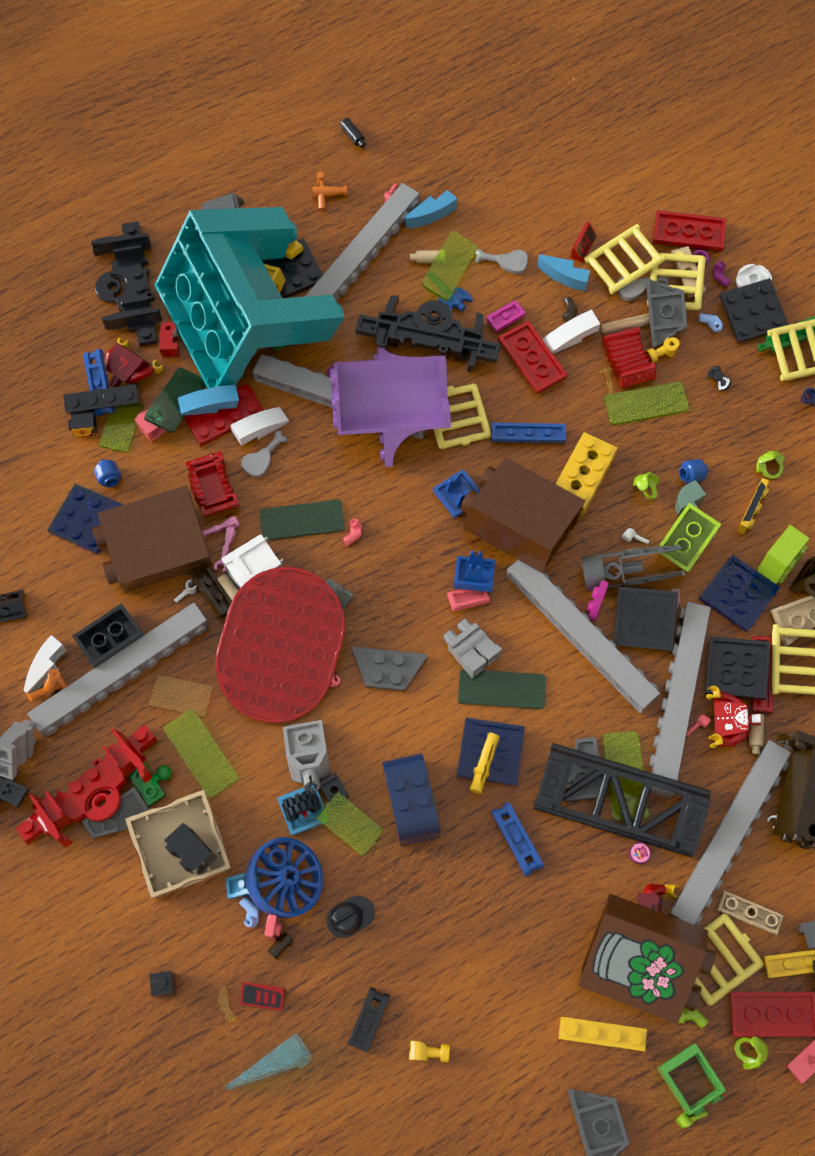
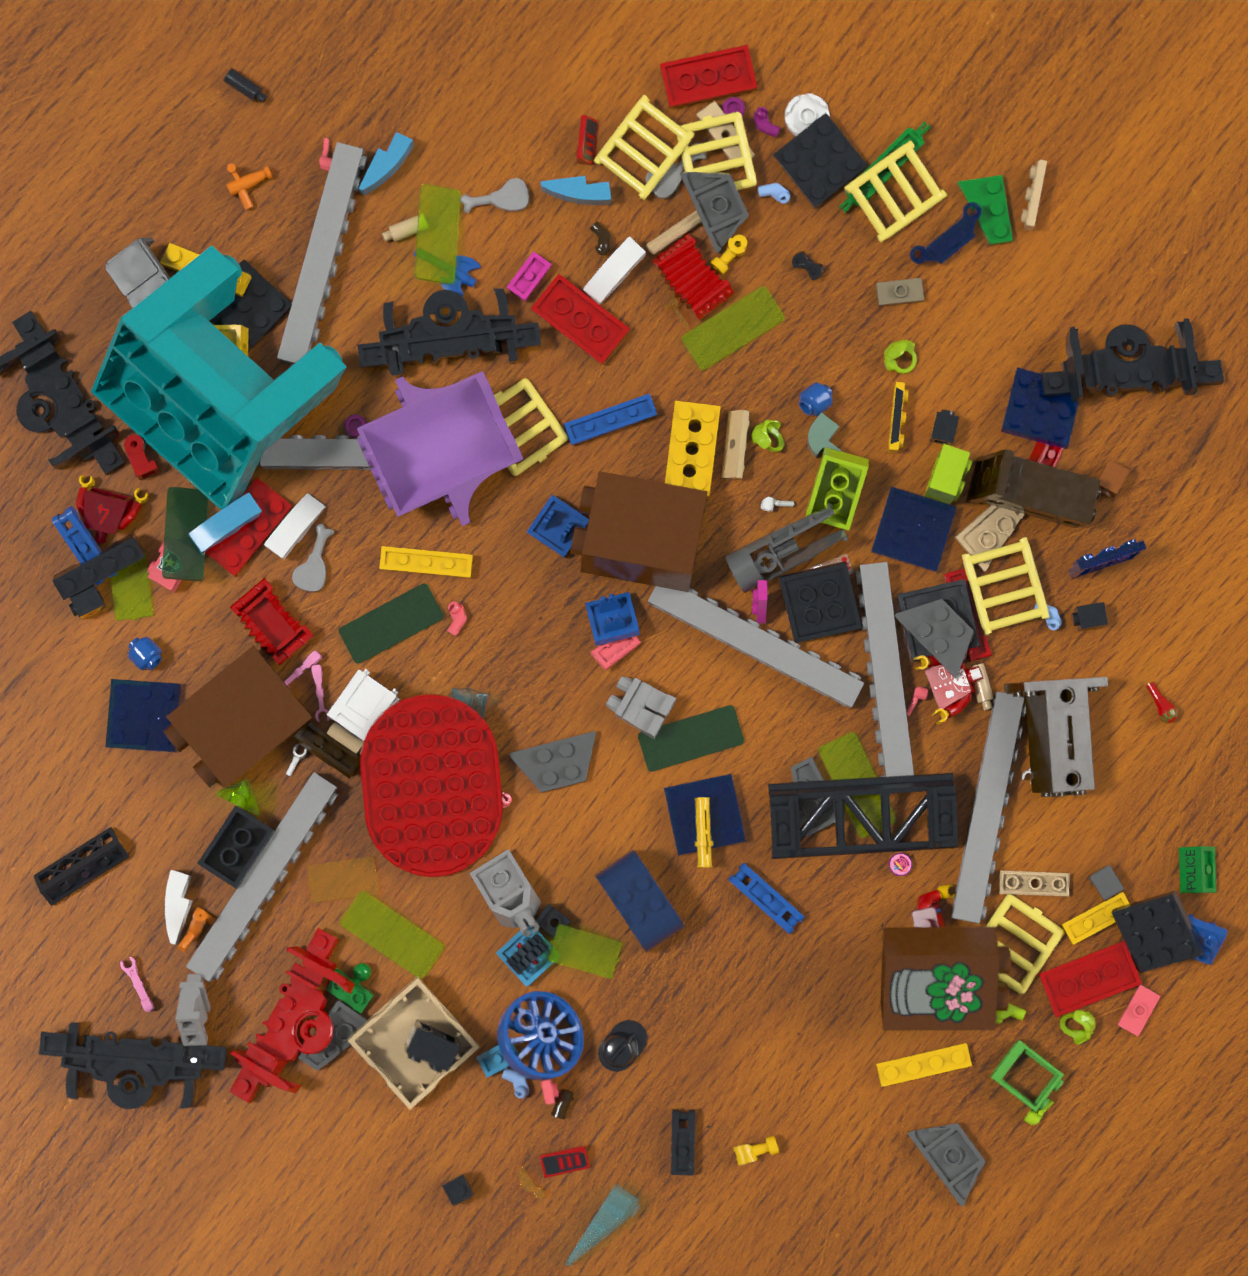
camera: 20 degrees left, 15 degrees up
(132, 599) = (242, 795): none -> clear neon green slope
(347, 484) = (426, 562): none -> yellow plate
(618, 482) = (735, 444): none -> tan tile
(736, 675) = (939, 632): none -> dark grey wing
(785, 420) = (899, 292): none -> dark tan plate
(790, 518) = (944, 427): none -> black brick

